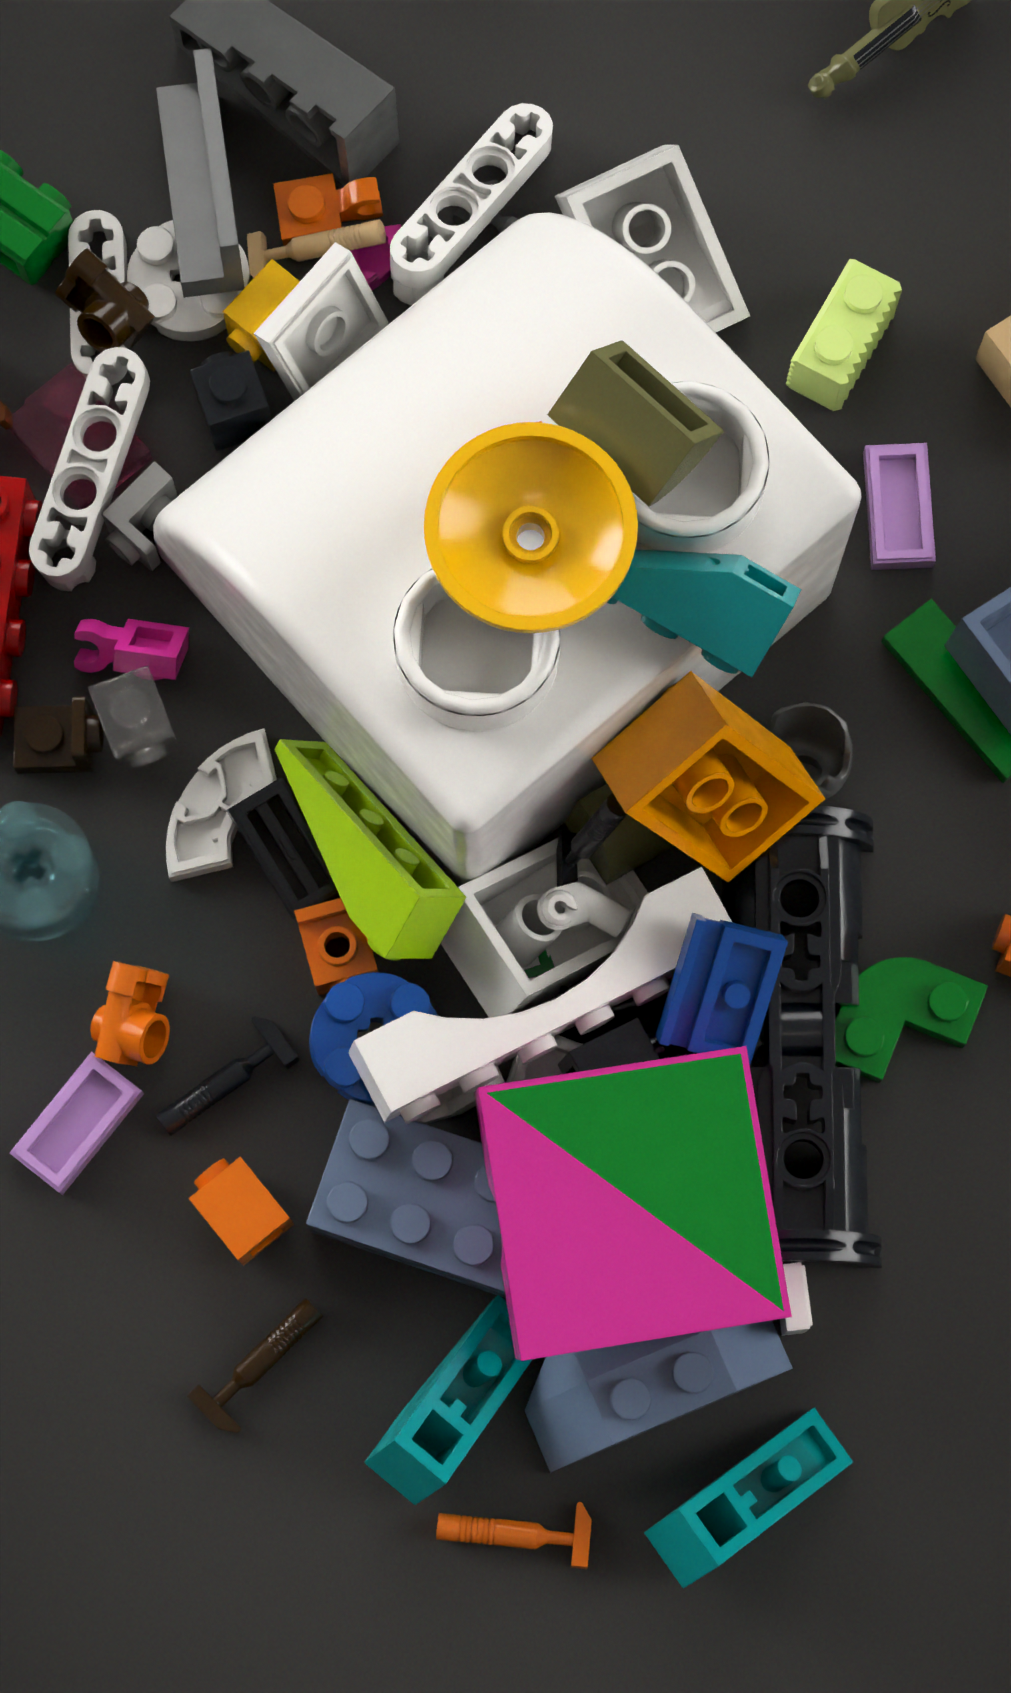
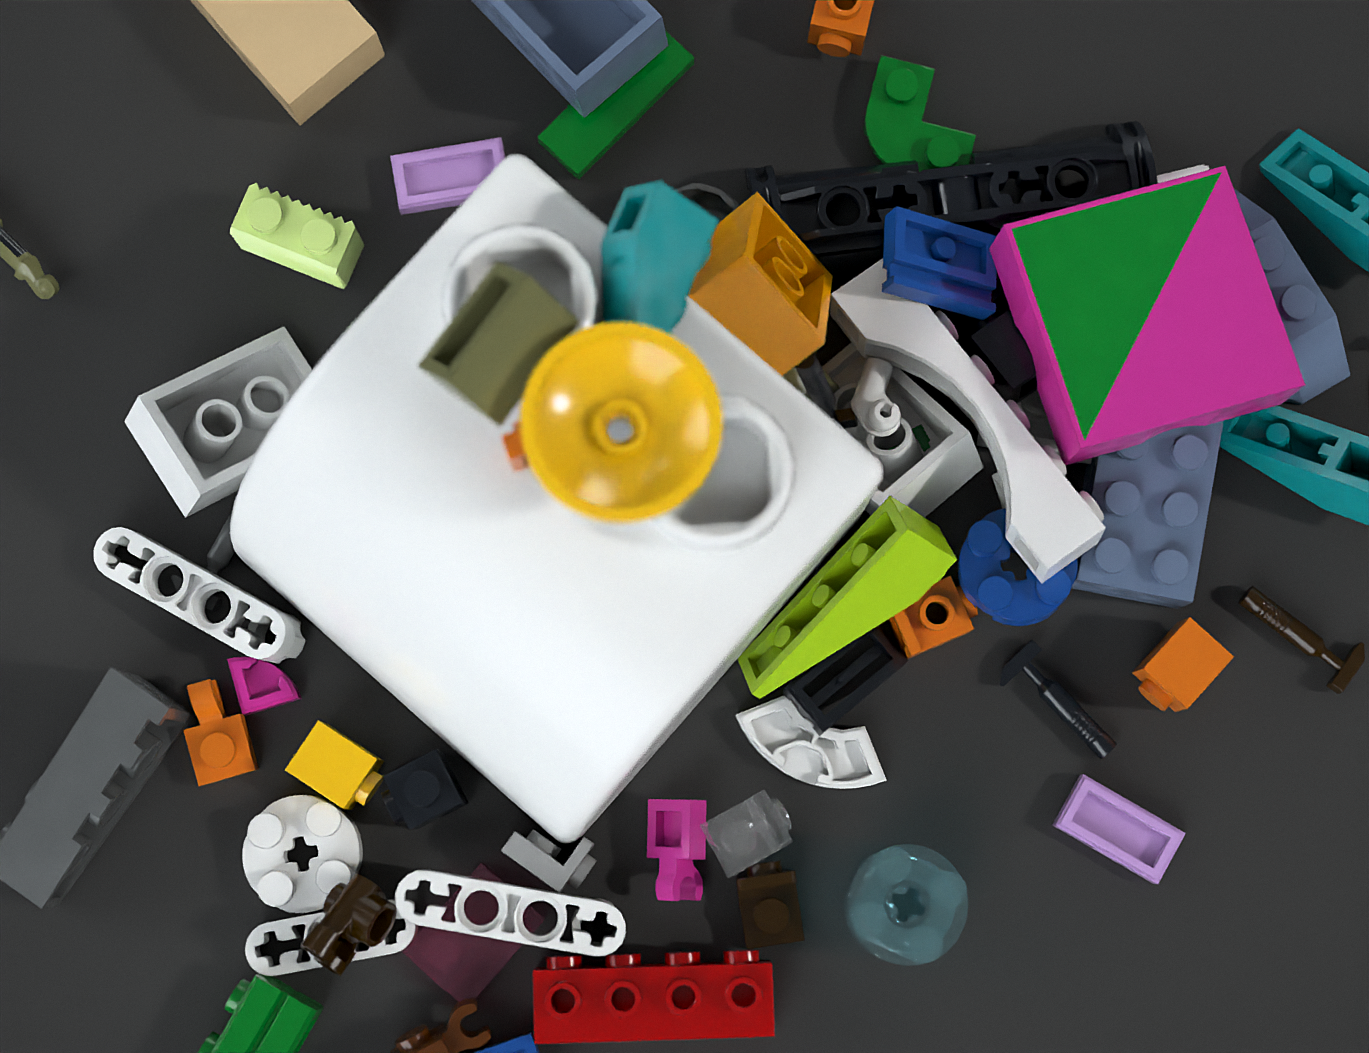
camera: 100 degrees left, 5 degrees up
(127, 1025) = (1028, 795): orange plate -> none
(200, 183) = (209, 852): fence -> none
(314, 244) = (260, 739): tan piece -> none
(321, 321) = (349, 711): white plate -> none

